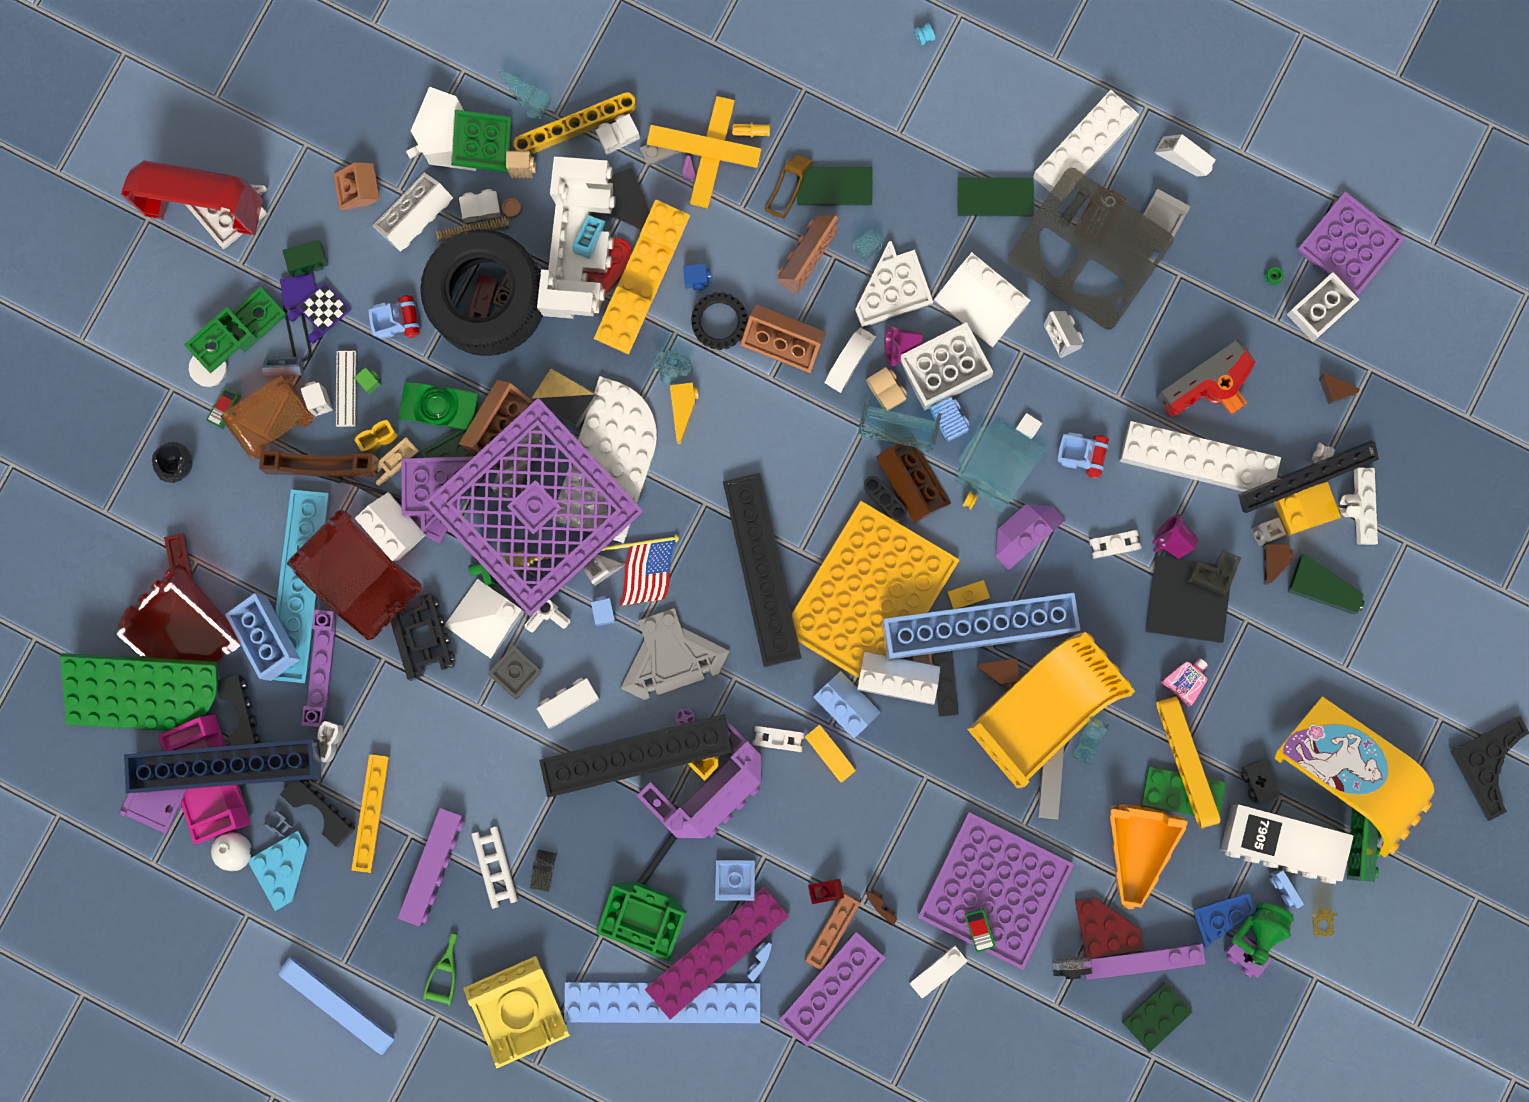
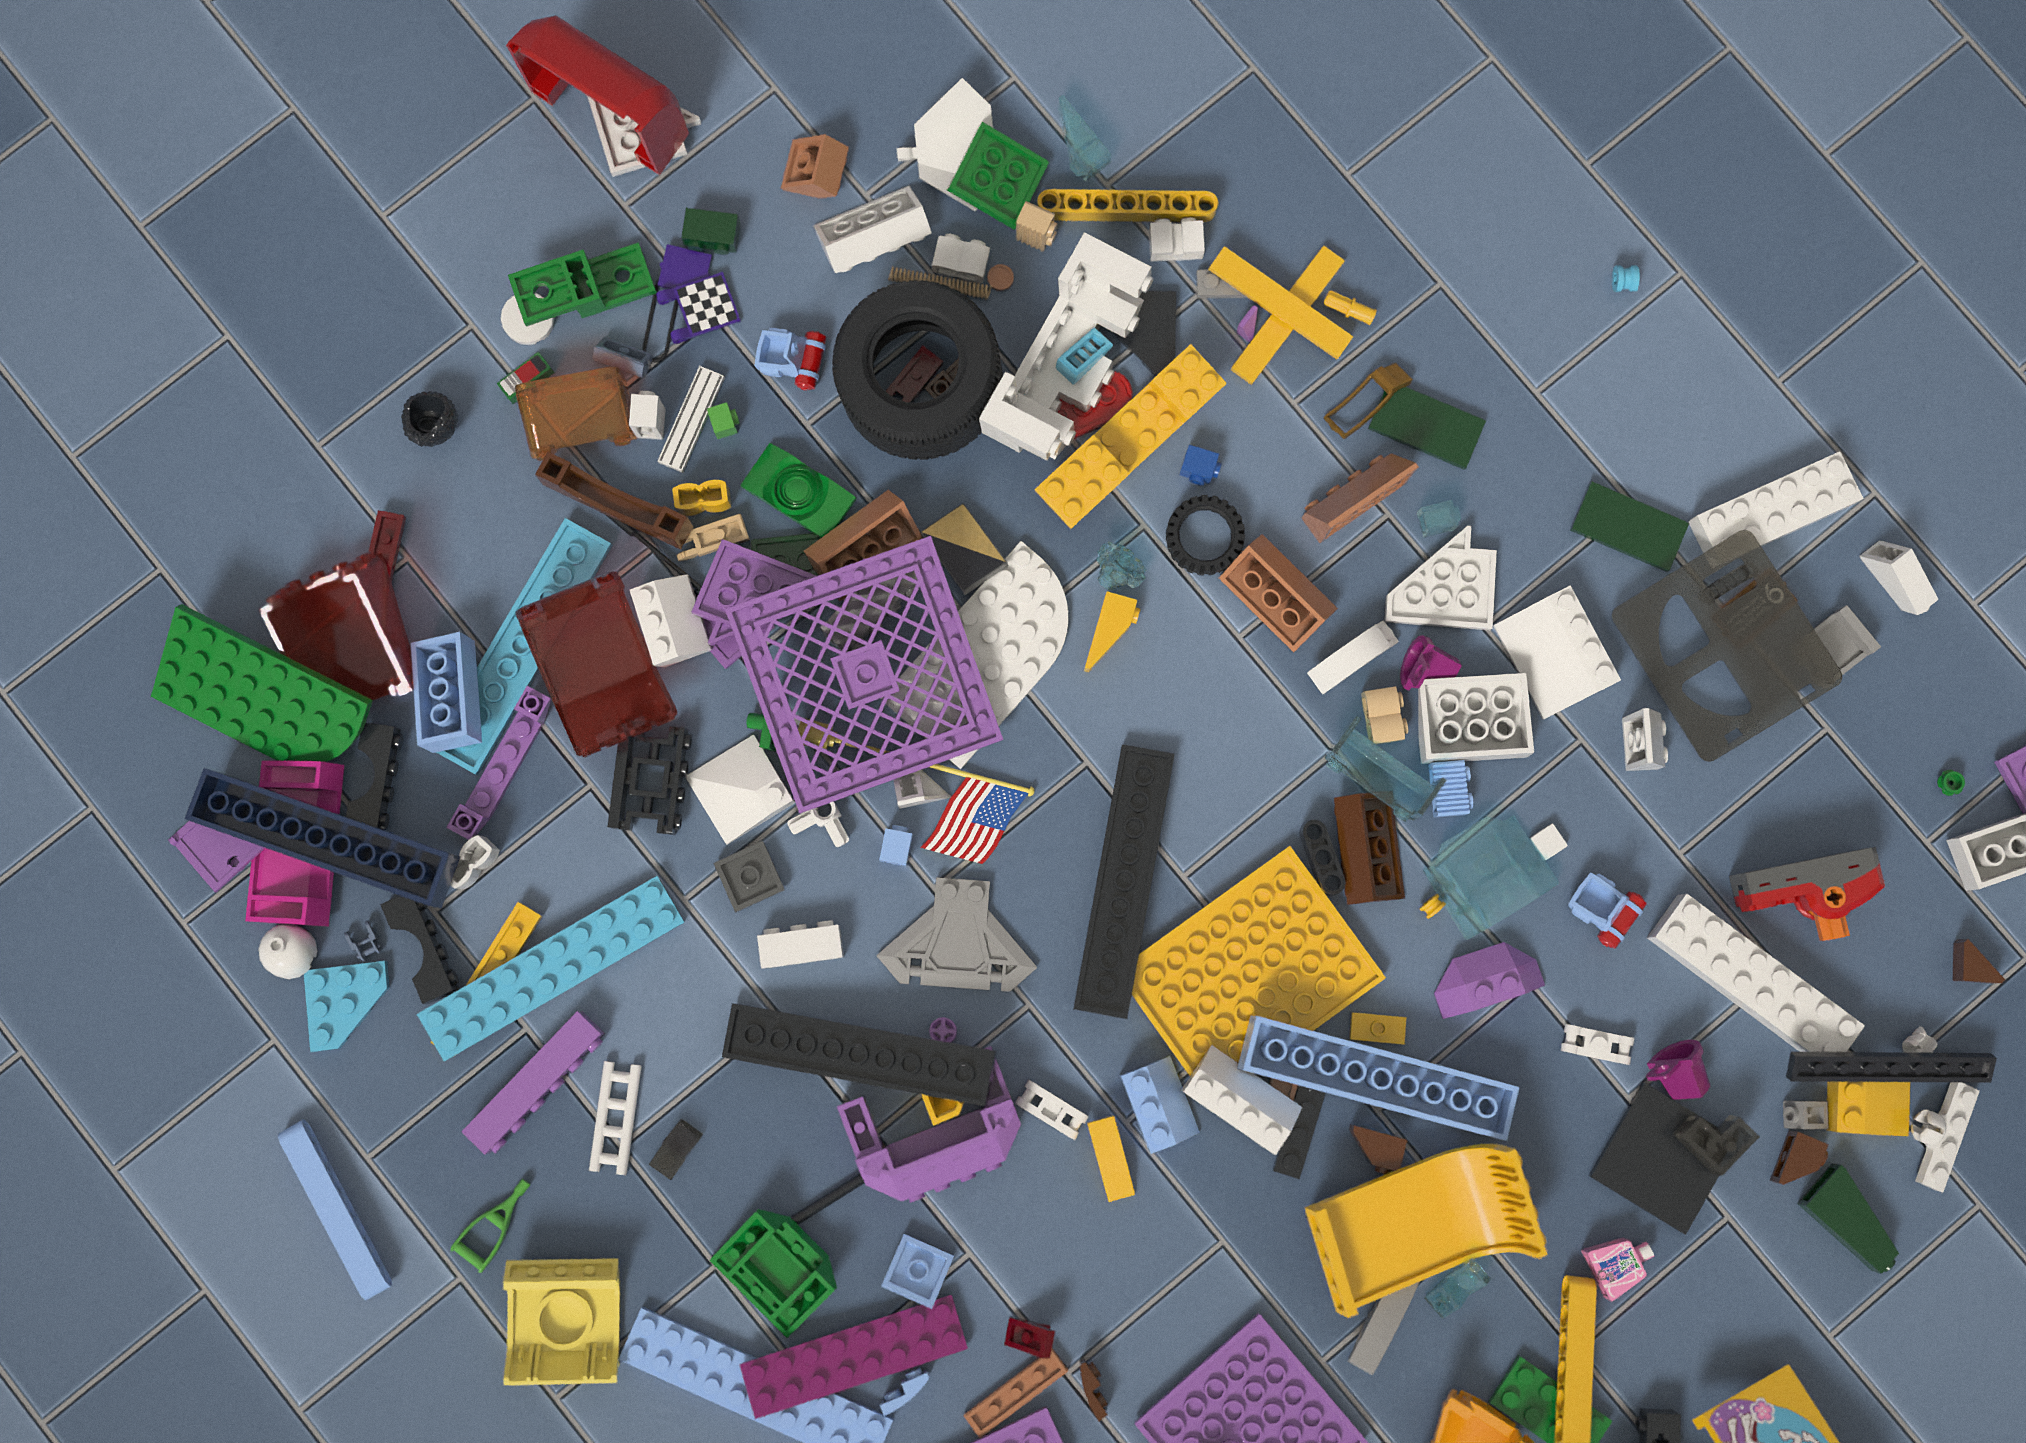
camera: 15 degrees right, 0 degrees up
(409, 788) = (550, 968): none -> medium azure plate

